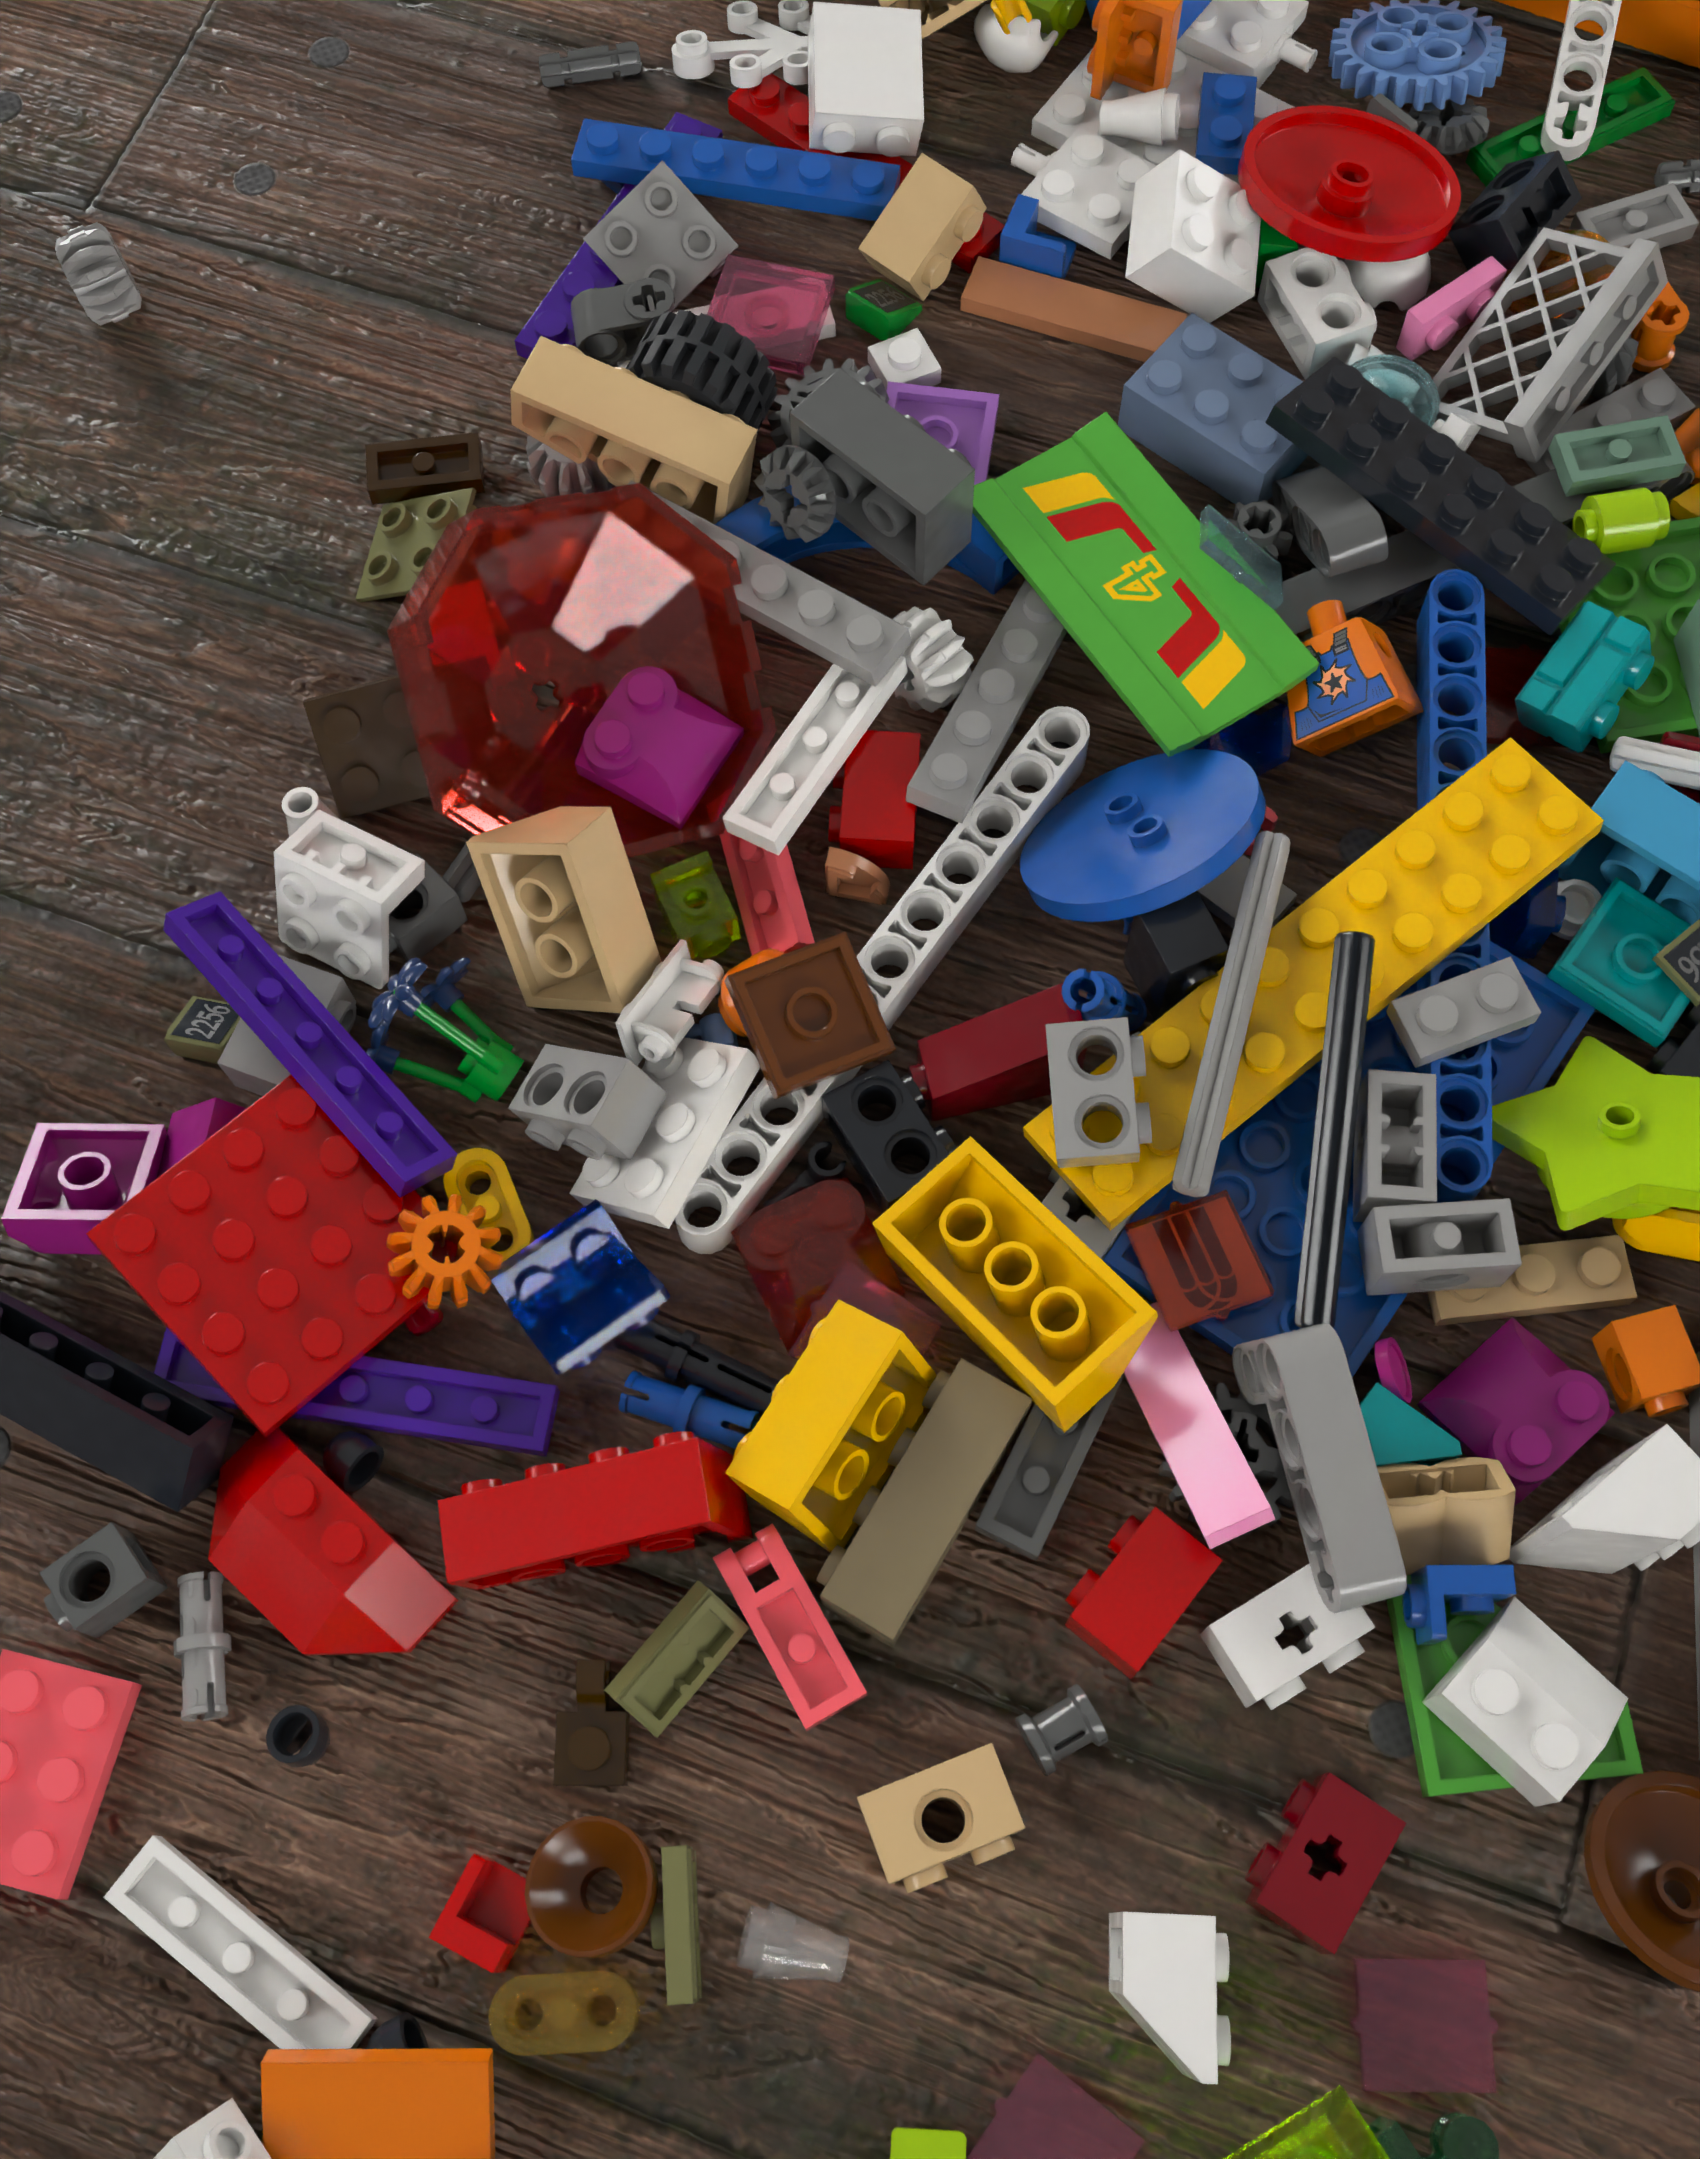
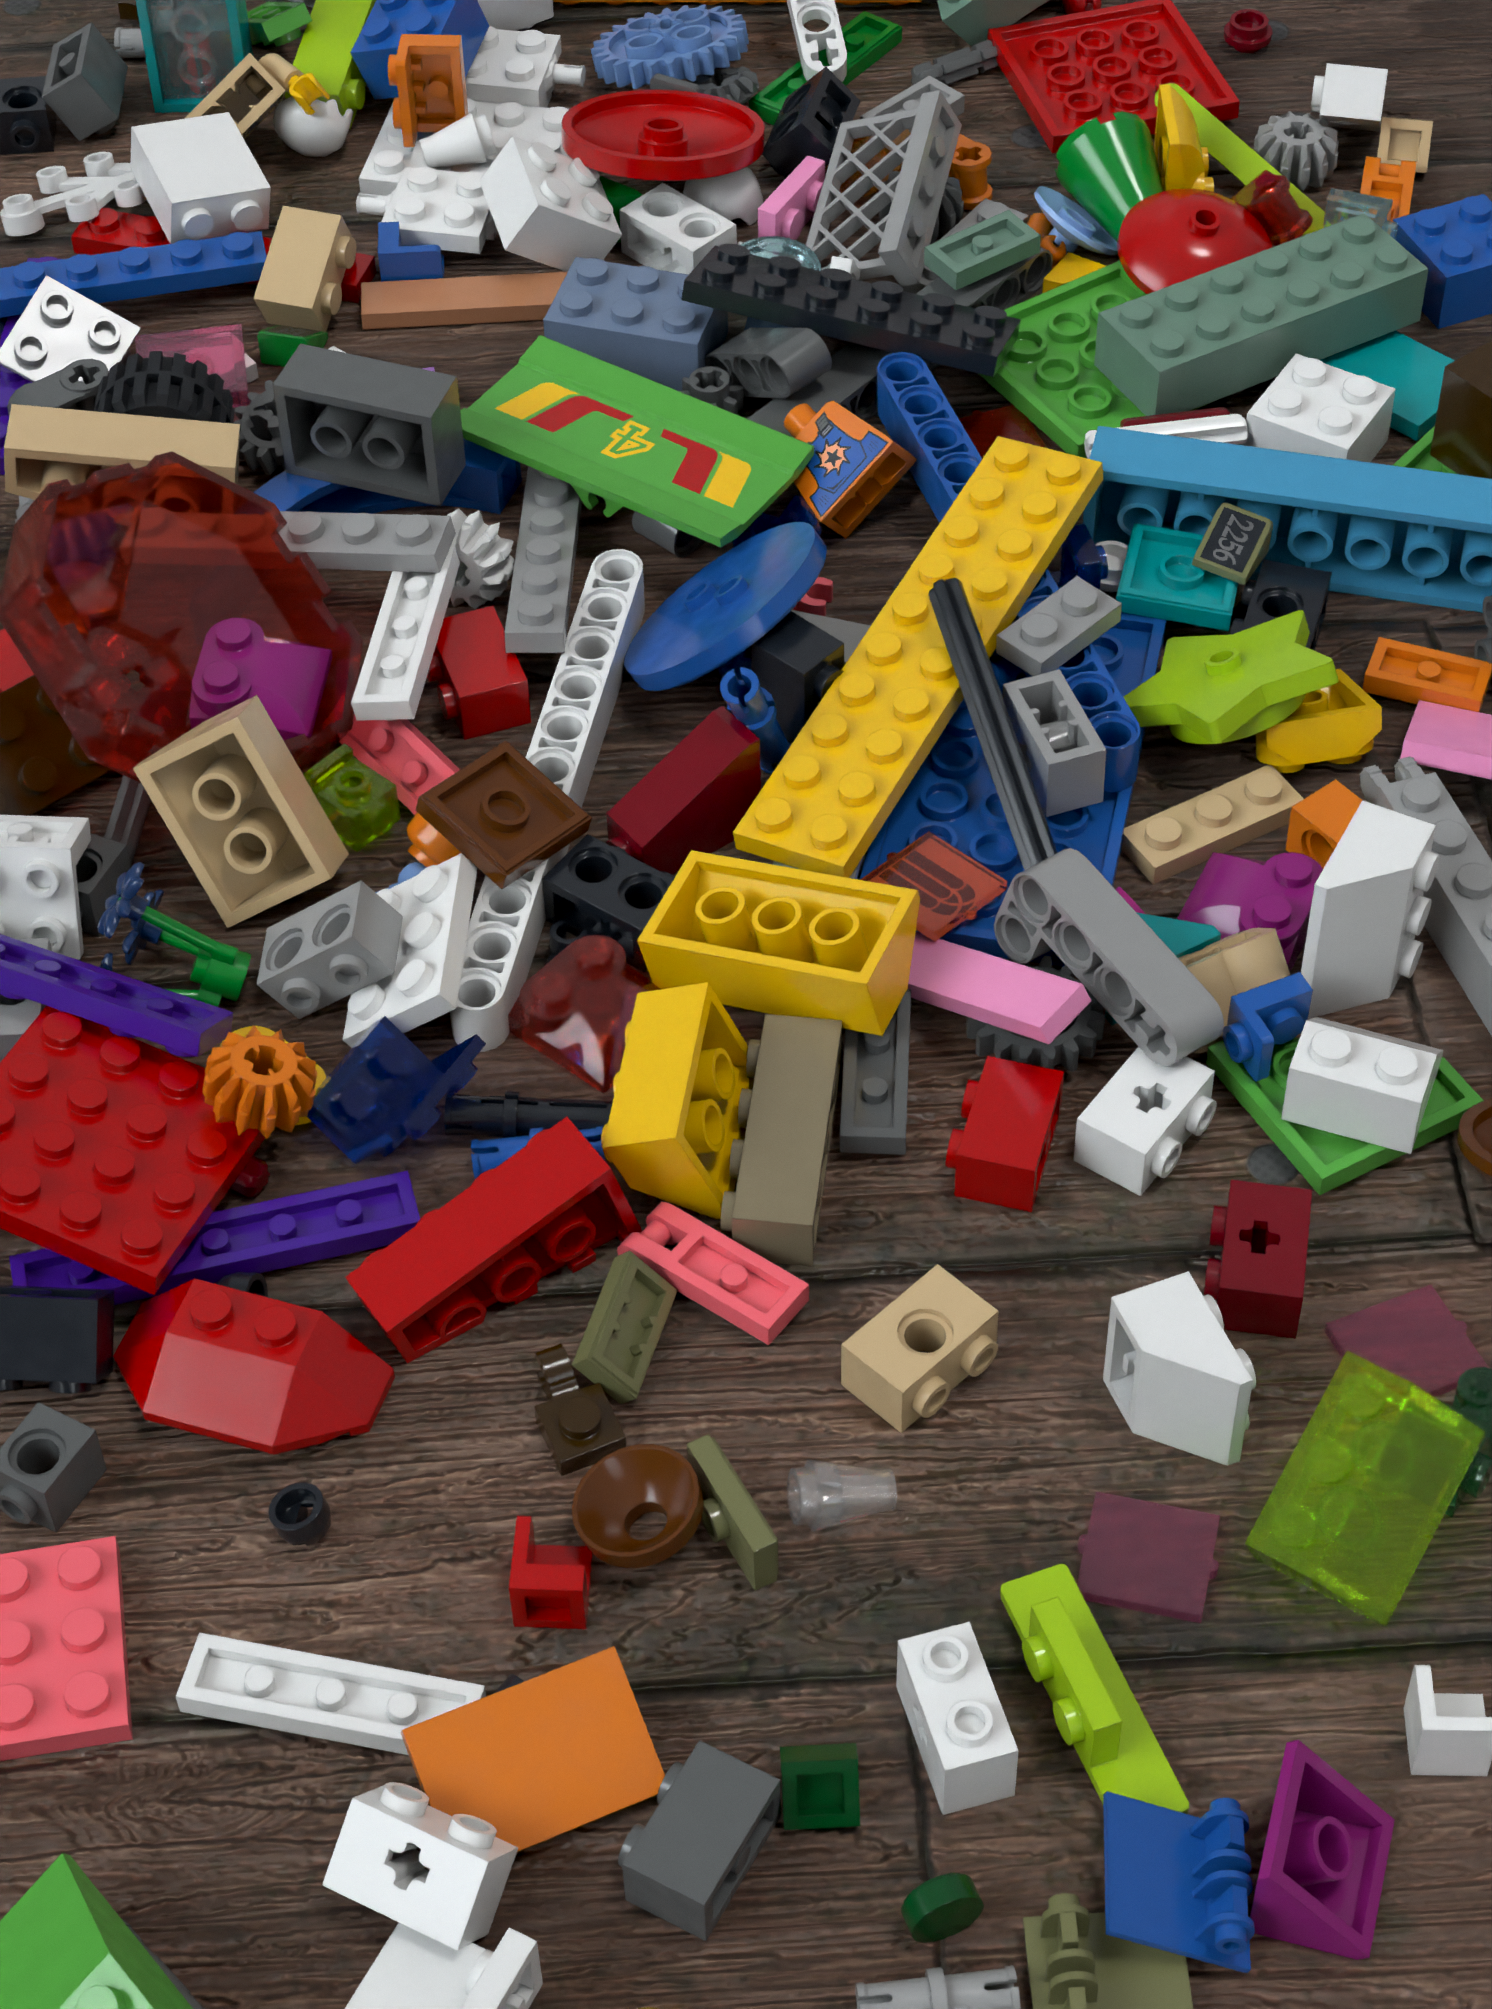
camera: 25 degrees left, 20 degrees down
(202, 1646) = (169, 1485): light grey pin -> none
(566, 2013) = (657, 1619): clear yellow plate -> none
(653, 1020) = (368, 856): white hinge -> none
(809, 484) = (310, 444): dark grey gear -> none
(855, 877) = (481, 731): nougat tile -> none
(1061, 1729) = (992, 1253): dark grey bush -> none
(1081, 1094) = (774, 766): light grey brick -> none
(1224, 119) = (530, 119): blue plate -> none
(1231, 1015) = (871, 683): light grey axle -> none
(1241, 557) = (709, 396): clear light blue piece -> none
(1438, 1246) = (1124, 794): light grey brick -> none
(1585, 677) = (1038, 394): teal brick -> none
(1623, 519) = (1014, 288): lime brick -> none

